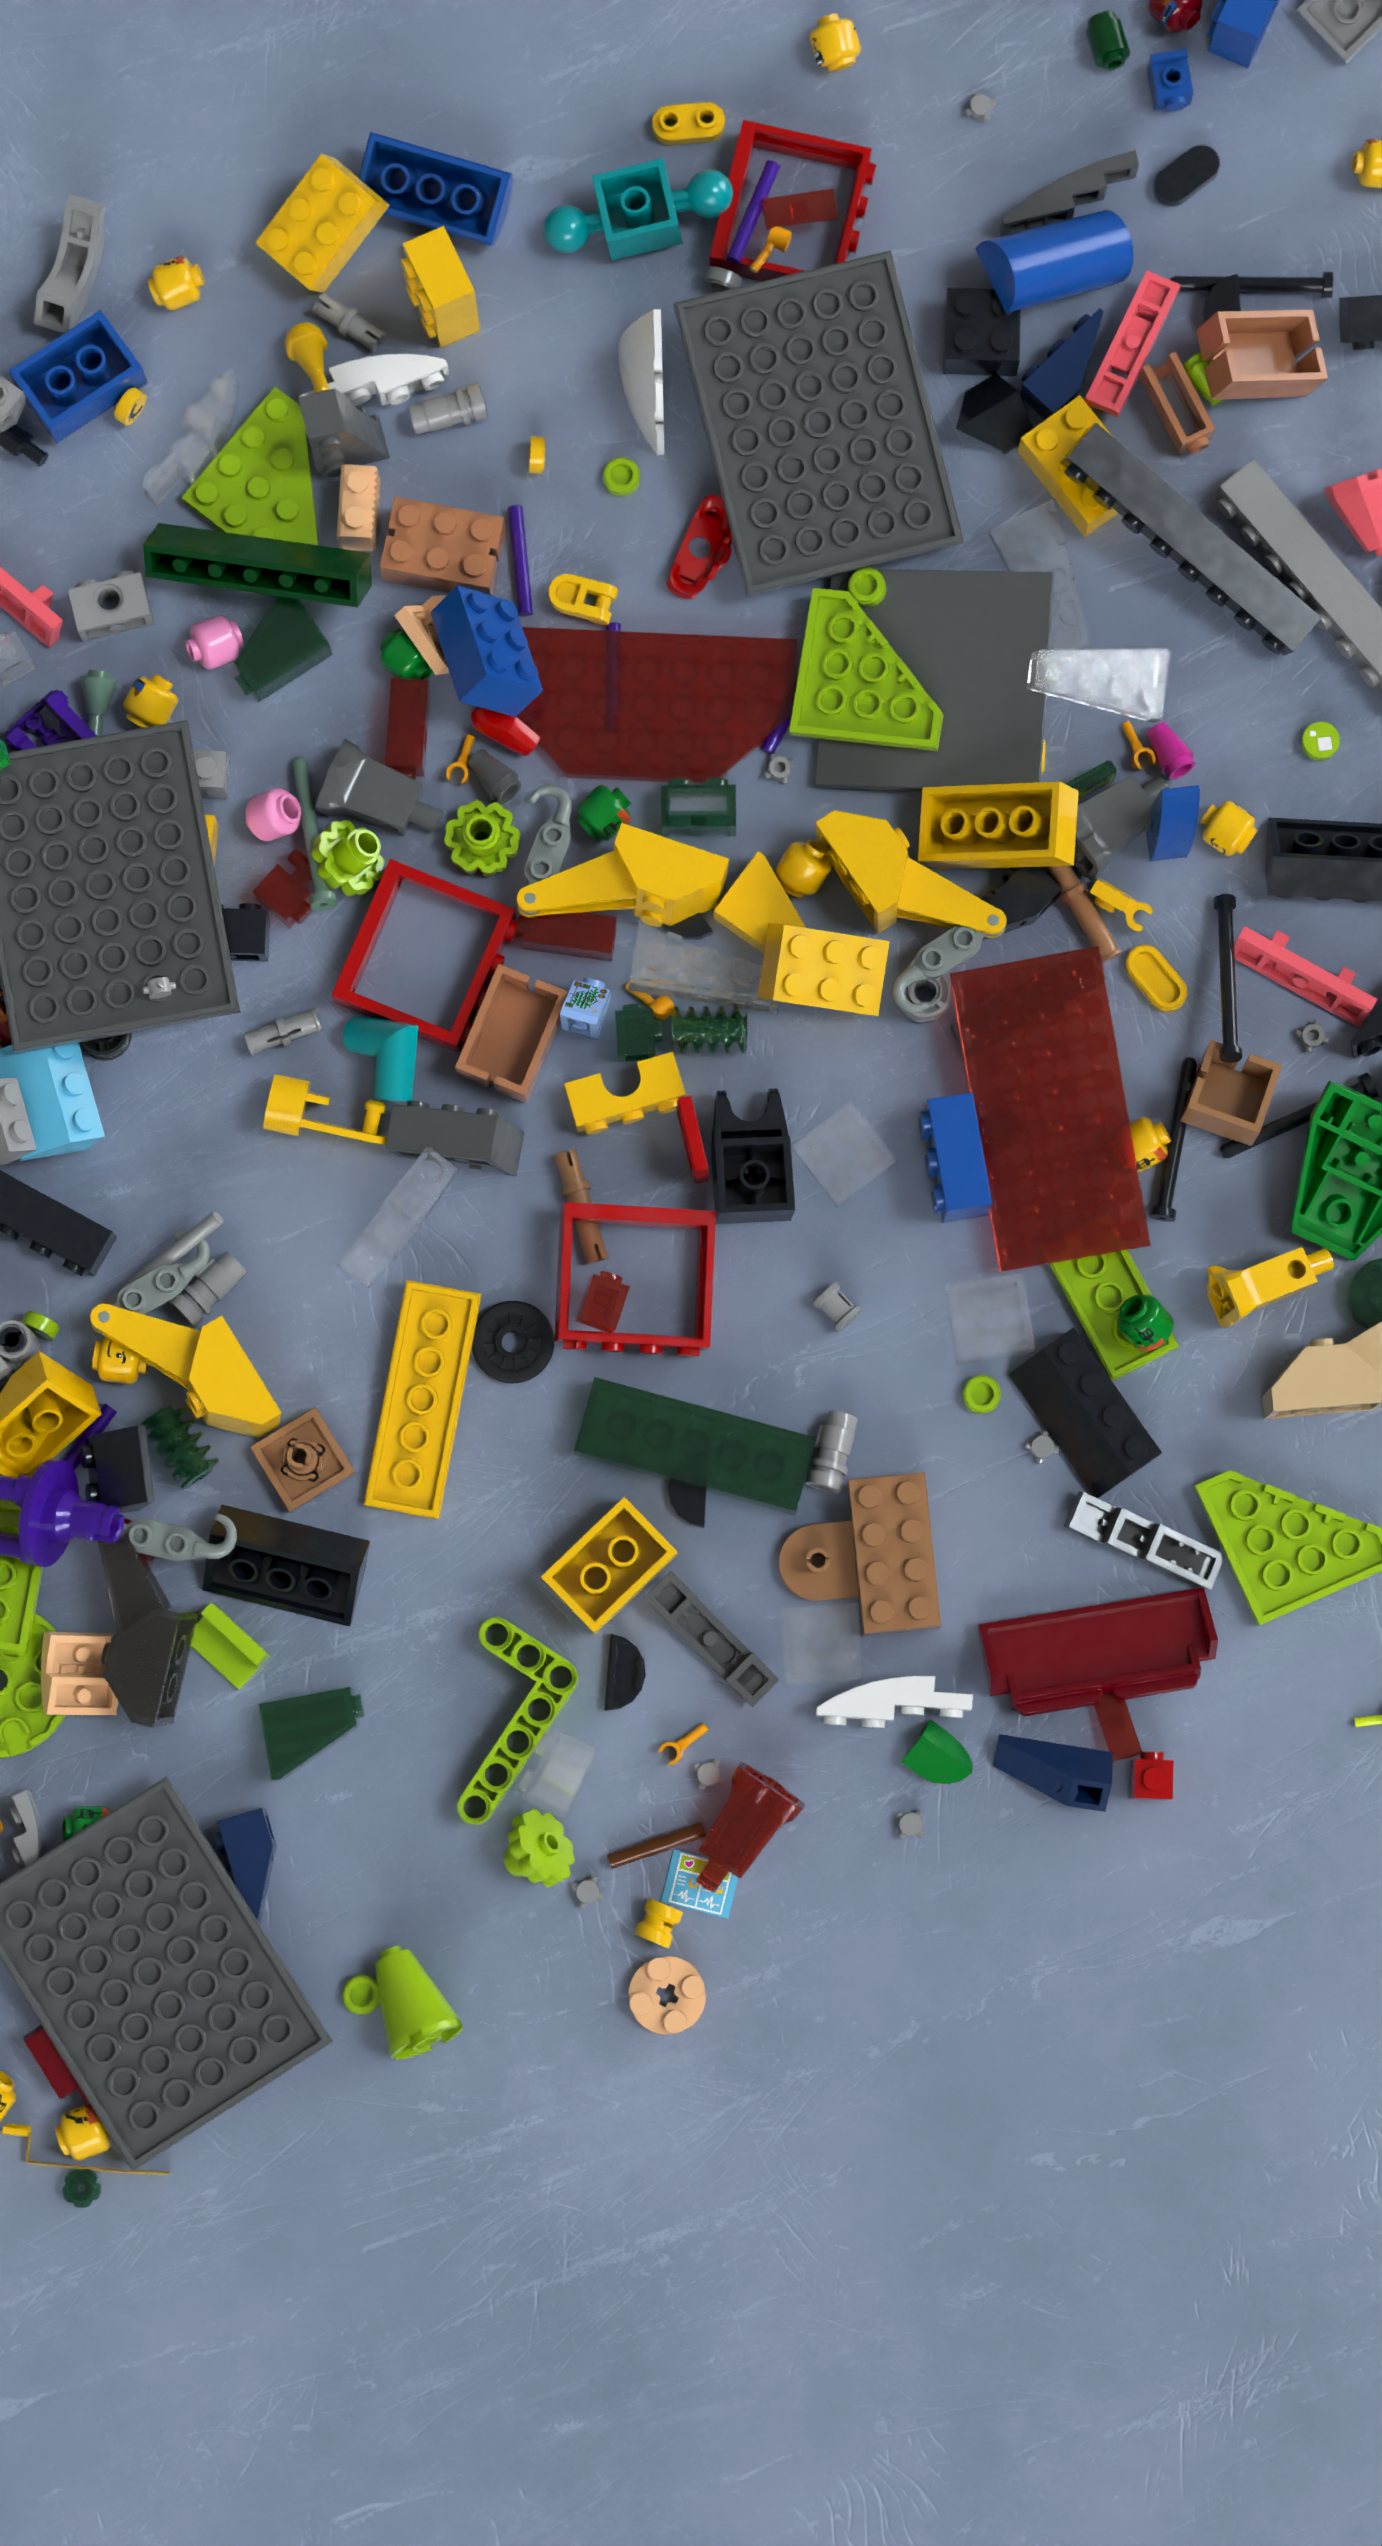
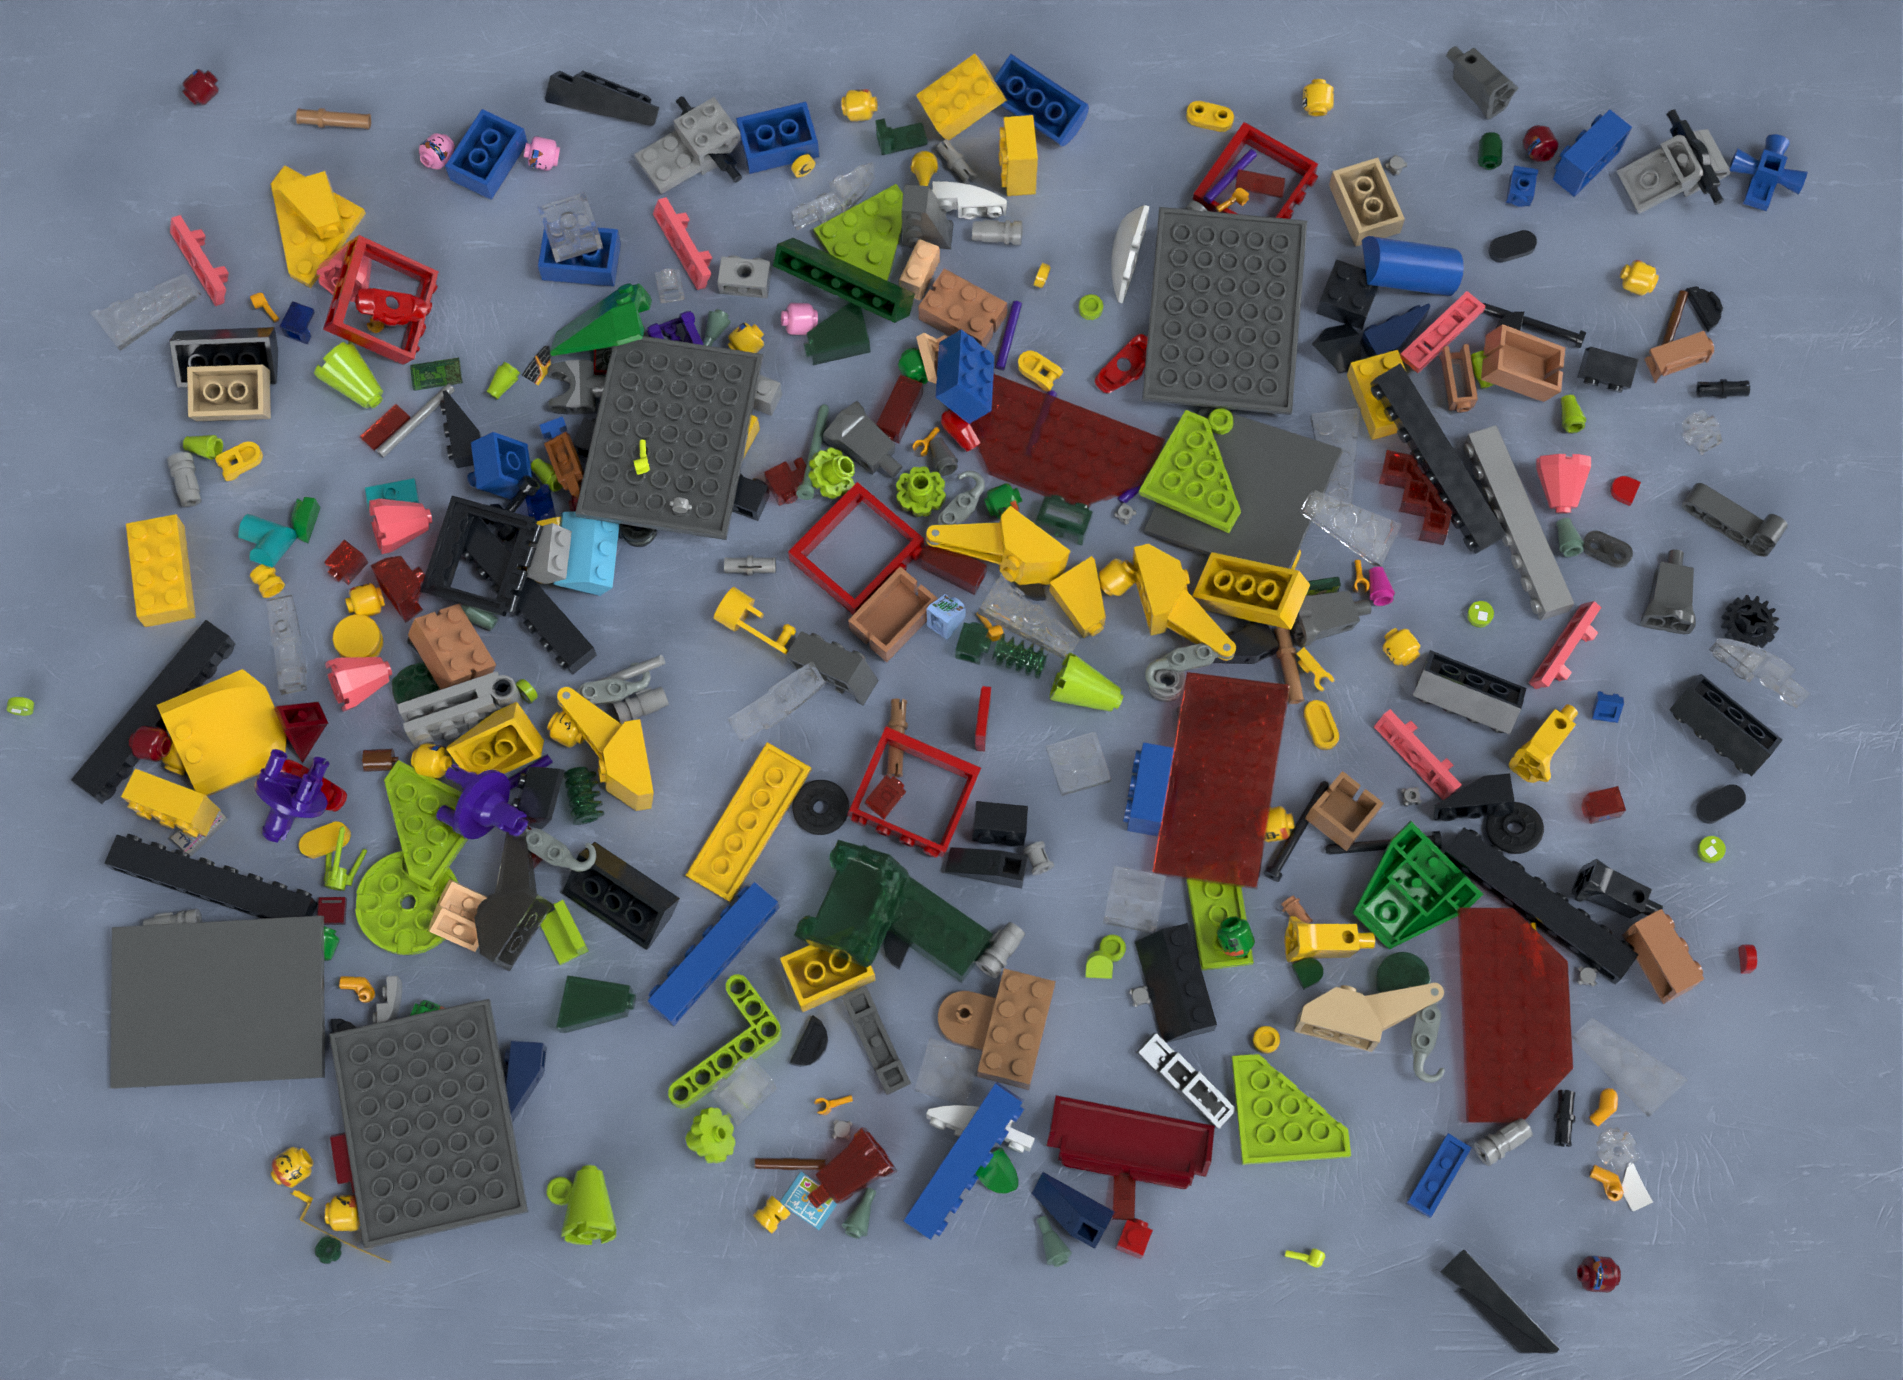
camera: 20 degrees right, 10 degrees down
(76, 266) = (802, 75): light grey arch -> none
(80, 947) = (641, 465): none -> neon yellow hand
(254, 313) = (899, 138): none -> clear green bracket
(273, 814) = (795, 432): bright pink head -> none
(302, 1459) = (665, 819): medium nougat plate -> none
(395, 1053) = (813, 596): teal brick -> none
(444, 1600) = (713, 953): none -> blue brick
(588, 1891) = (733, 1177): light grey piece -> none
(596, 1107) = (930, 680): yellow arch -> none
(618, 1468) = (856, 904): none -> clear green windscreen
(637, 210) = (1158, 152): teal brick -> none
(645, 2001) = (760, 1249): light nougat plate -> none
(751, 1149) = (1018, 739): black brick -> none
(768, 1279) = (1000, 823): none -> black brick
(772, 1343) = (988, 865): none -> black slope
(777, 1887) = (858, 1221): none -> sand green cone
(813, 1042) = (1084, 686): none -> lime cone
(823, 969) = (1106, 641): yellow brick -> none
(891, 1760) = (963, 1161): none -> blue brick
(910, 1824) = (963, 1212): light grey piece -> none
(958, 182) = (1366, 201): none -> tan brick
(973, 1425) = (1099, 965): none -> lime tile
(1050, 1828) = (1055, 1249): none -> sand green cone
(1058, 199) = (1437, 230): dark grey slope -> none
(1173, 823) = (1365, 627): blue slope -> none
(1178, 601) = (1418, 495): none -> clear red brick
(1211, 1253) = (1294, 908): none -> nougat pin
(1230, 1051) = (1353, 782): black bar -> none
(1231, 1445) = (1266, 1039): none -> yellow tile
(1256, 1332) = (1308, 972): none -> dark green tile
(1352, 404) = (1572, 416): none -> lime cone

